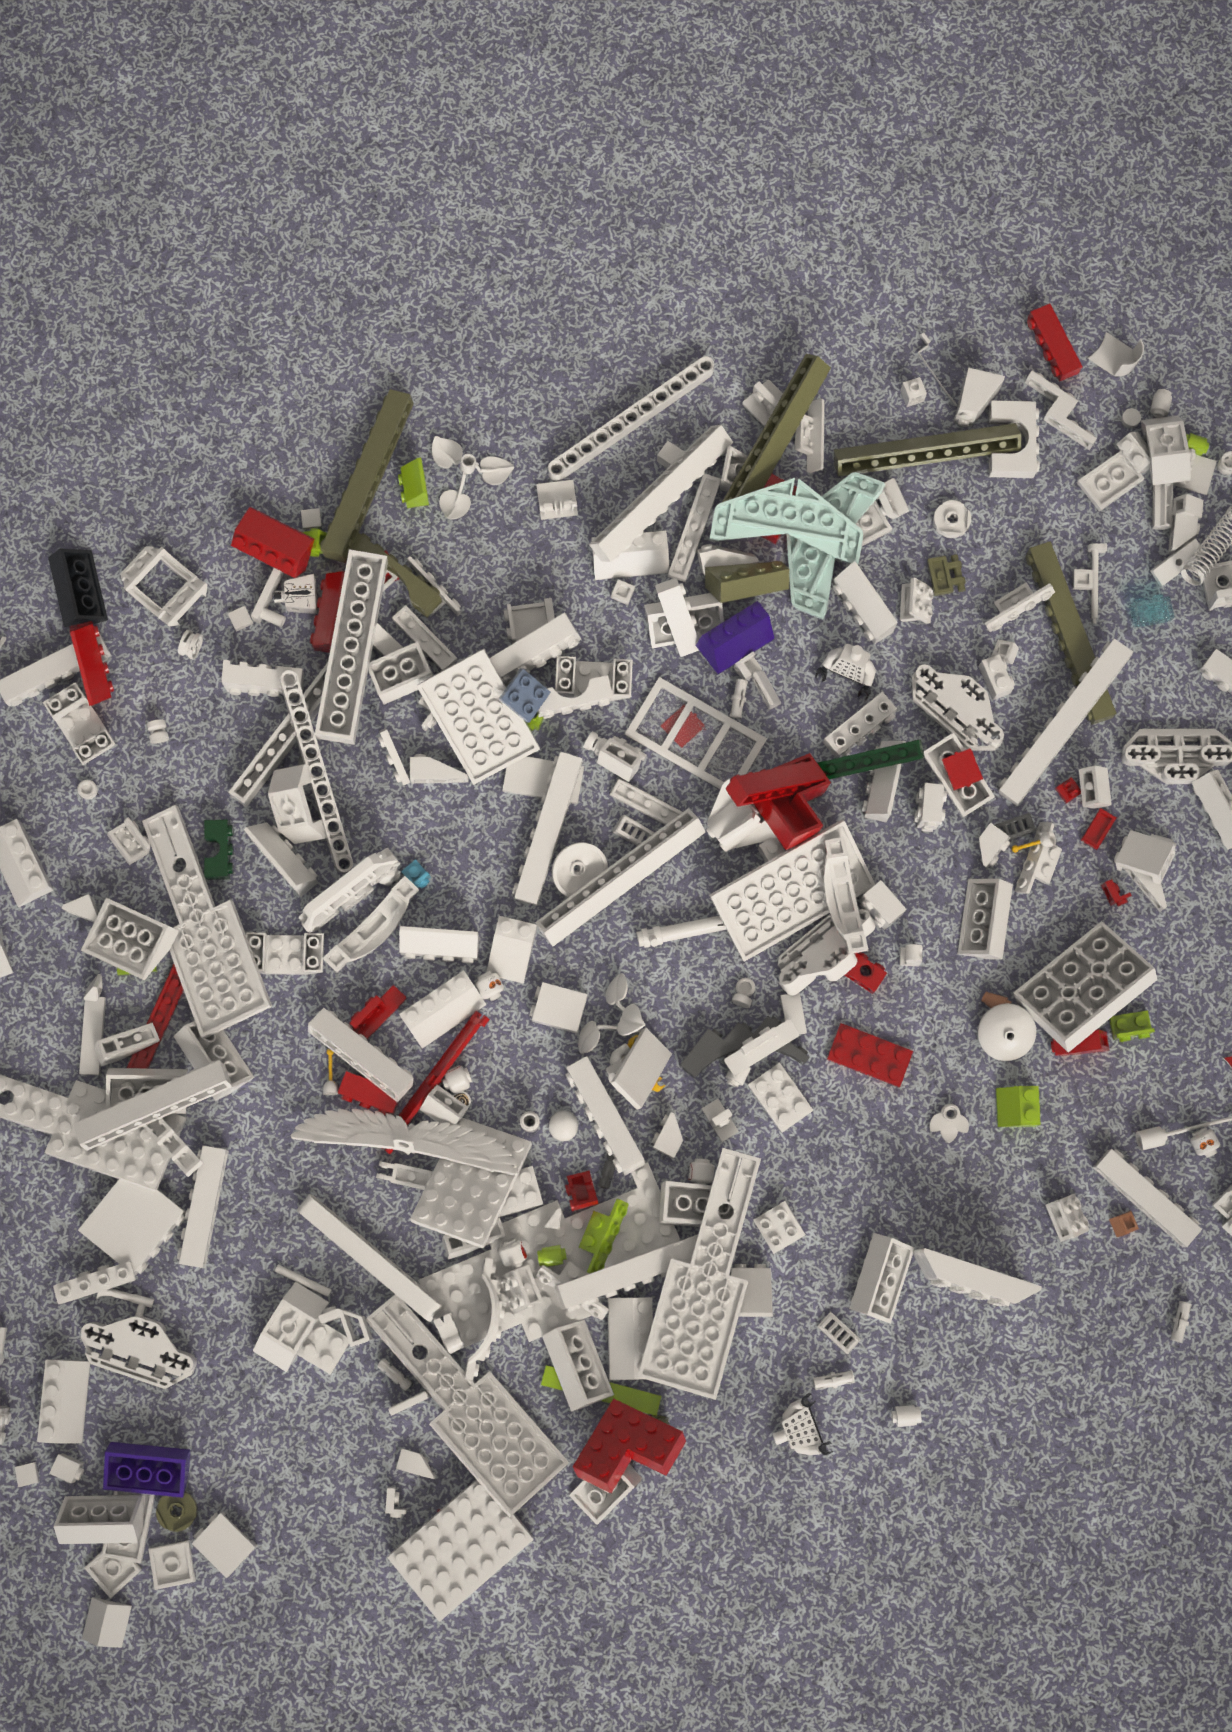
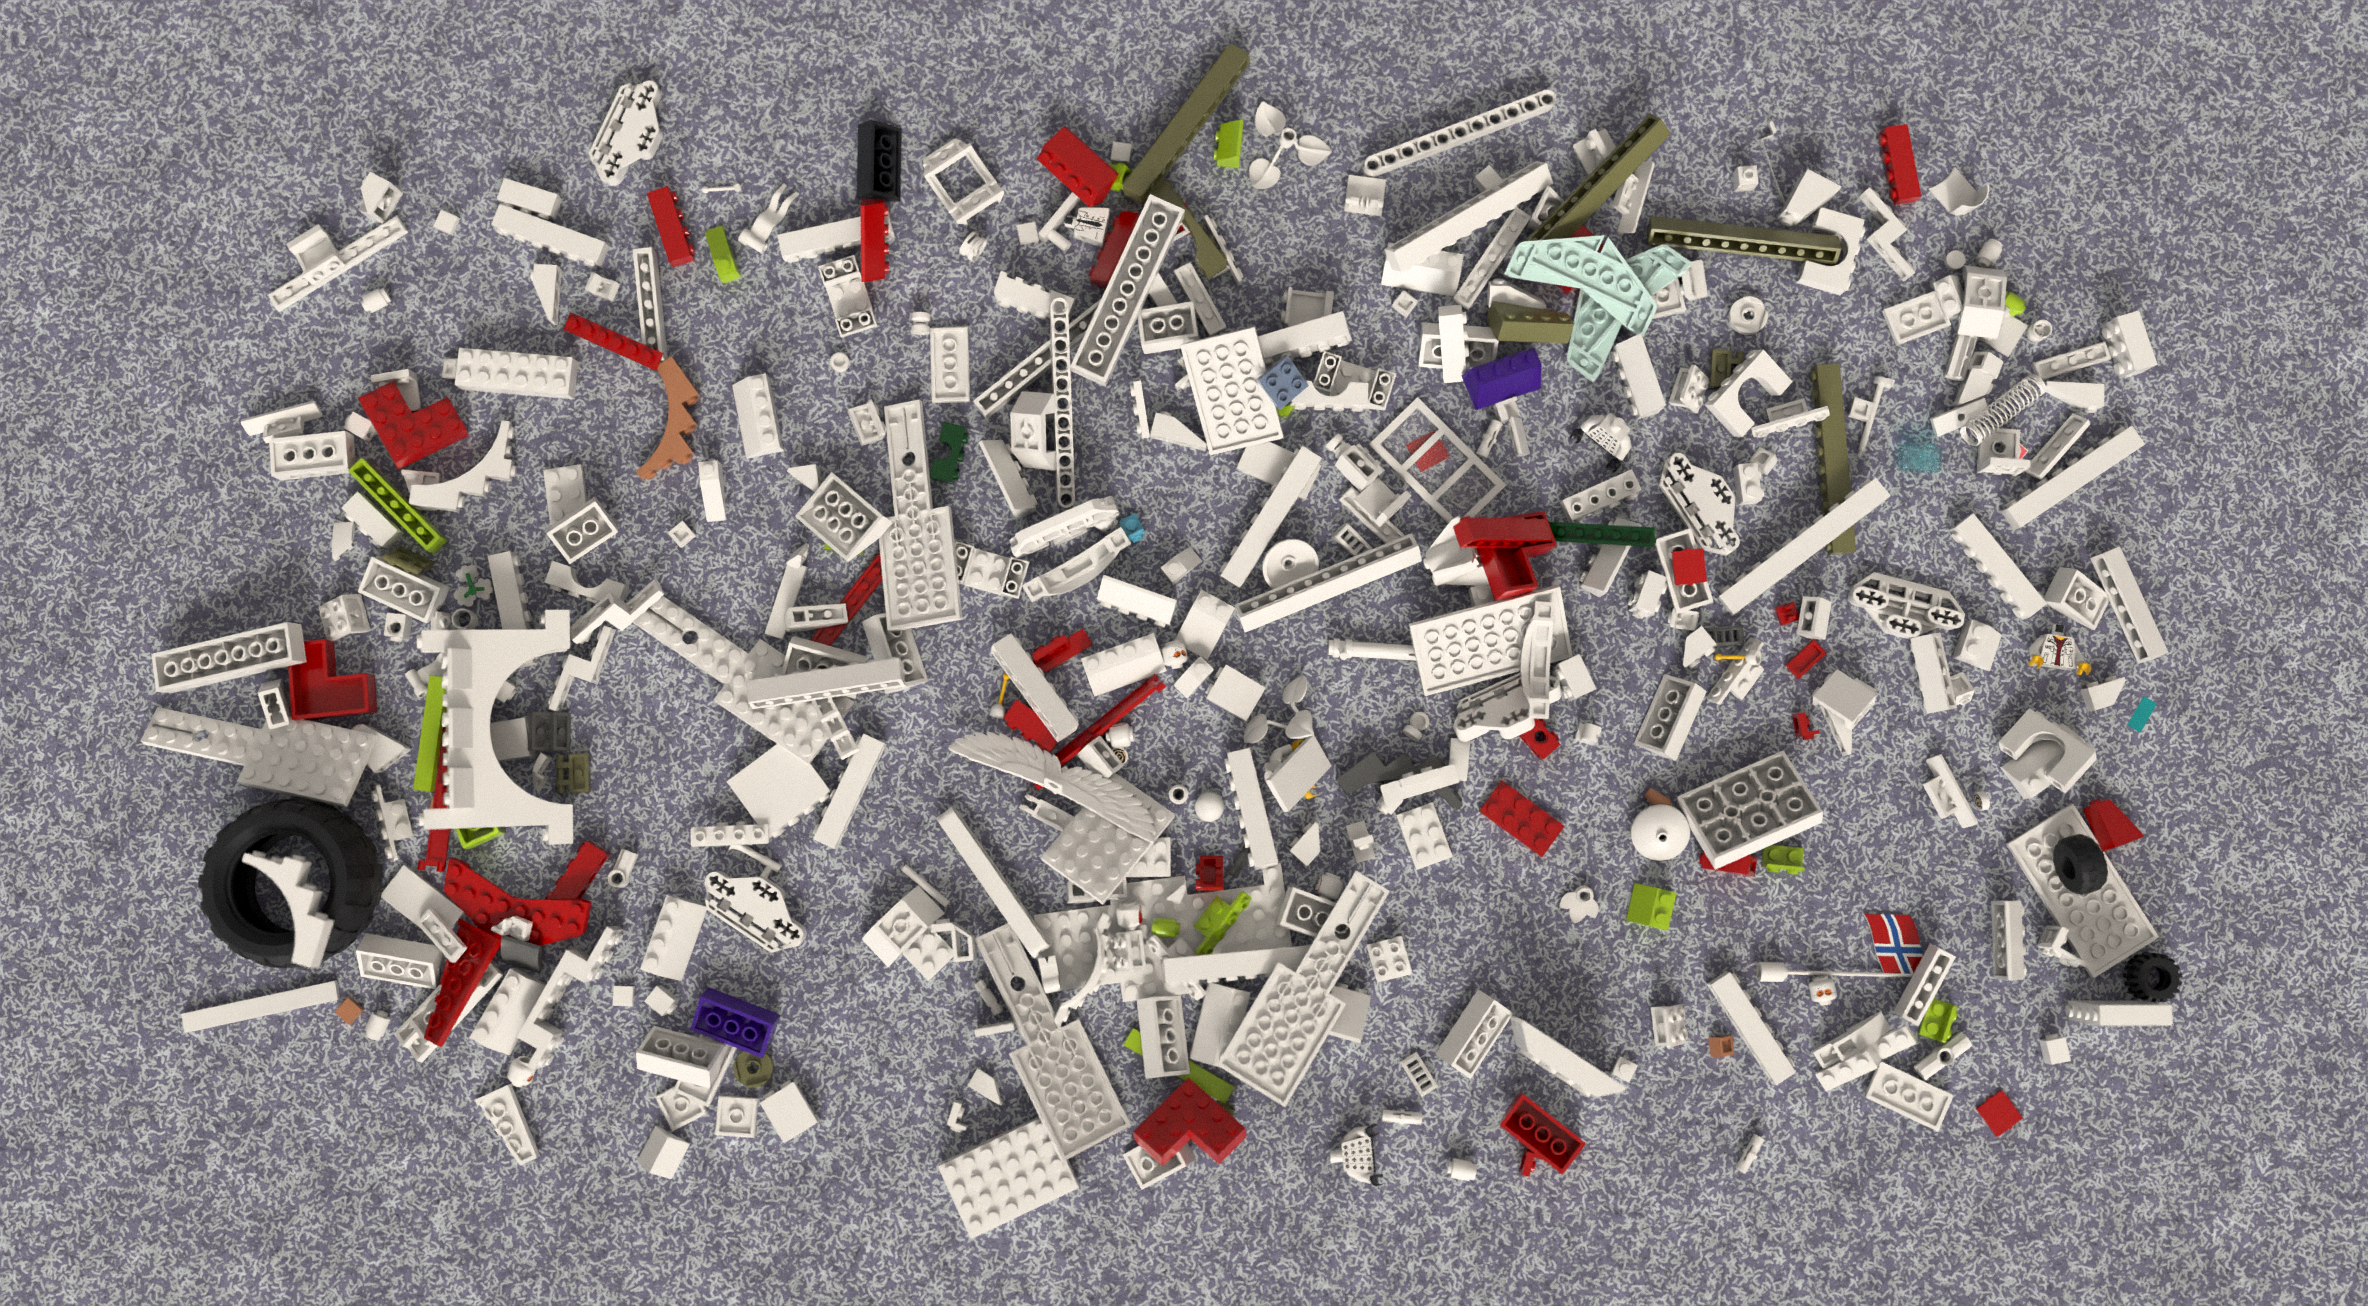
camera: 20 degrees right, 5 degrees up
(196, 764) = (950, 364): none -> white tile
(473, 898) = (1180, 565): none -> white slope
(514, 1003) = (1194, 677): none -> white slope
(650, 786) = (1380, 501): none -> white bracket
(952, 604) = (1724, 401): none -> white arch
(969, 1392) = (1527, 1163): none -> red bracket
(972, 822) = (1685, 620): none -> white bracket
(974, 1357) = (1541, 1133): none -> red slope
(1036, 1272) = (1624, 1069): none -> white plate

